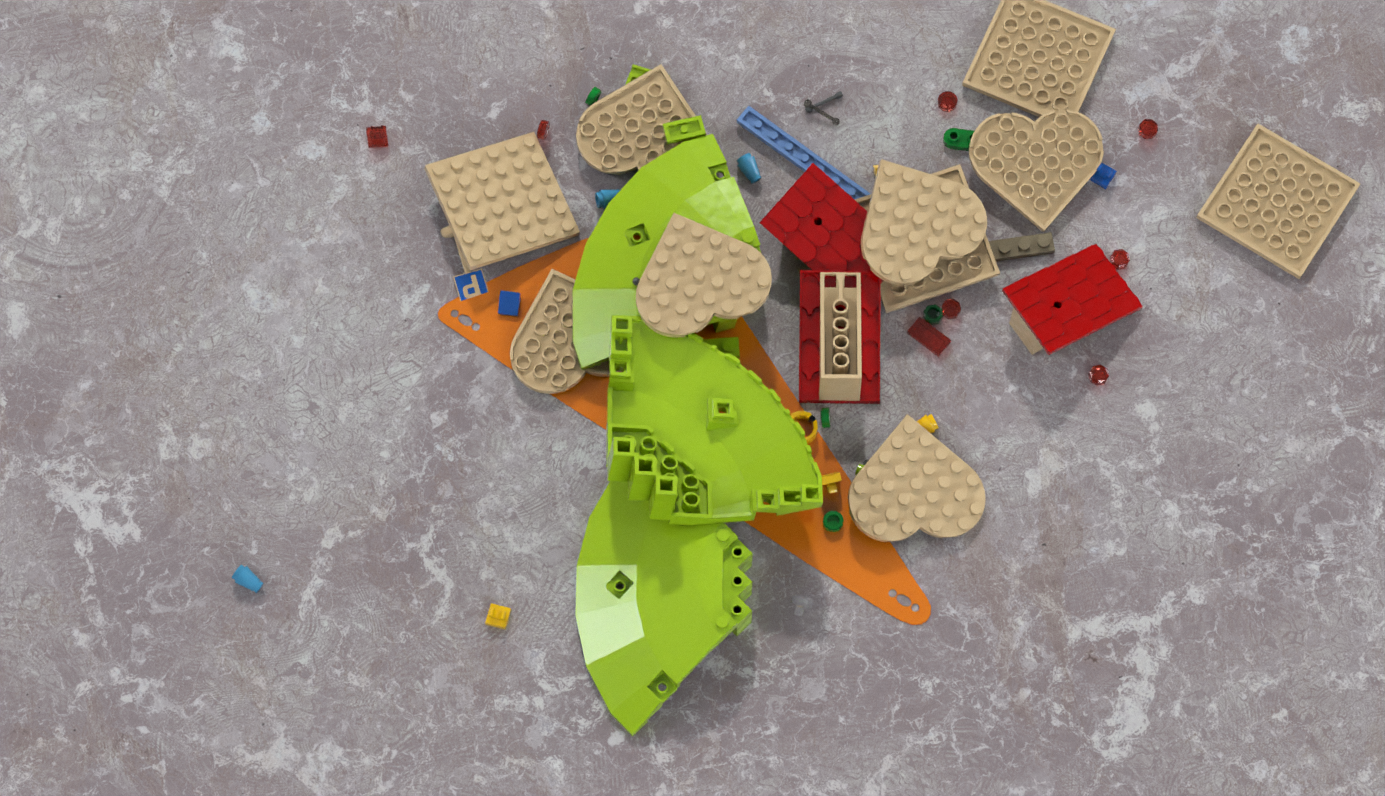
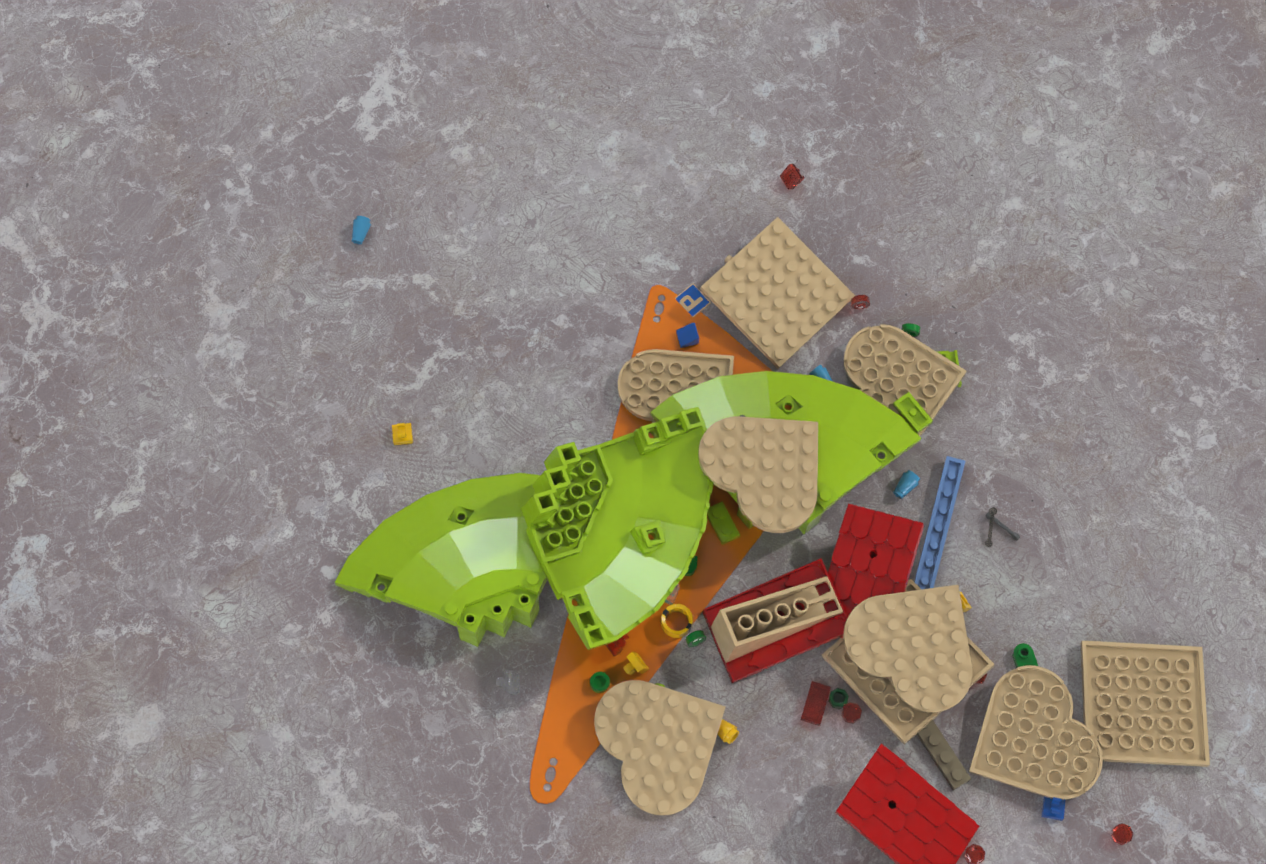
camera: 65 degrees right, 5 degrees down
(947, 101) = (1057, 635): clear red tile -> none

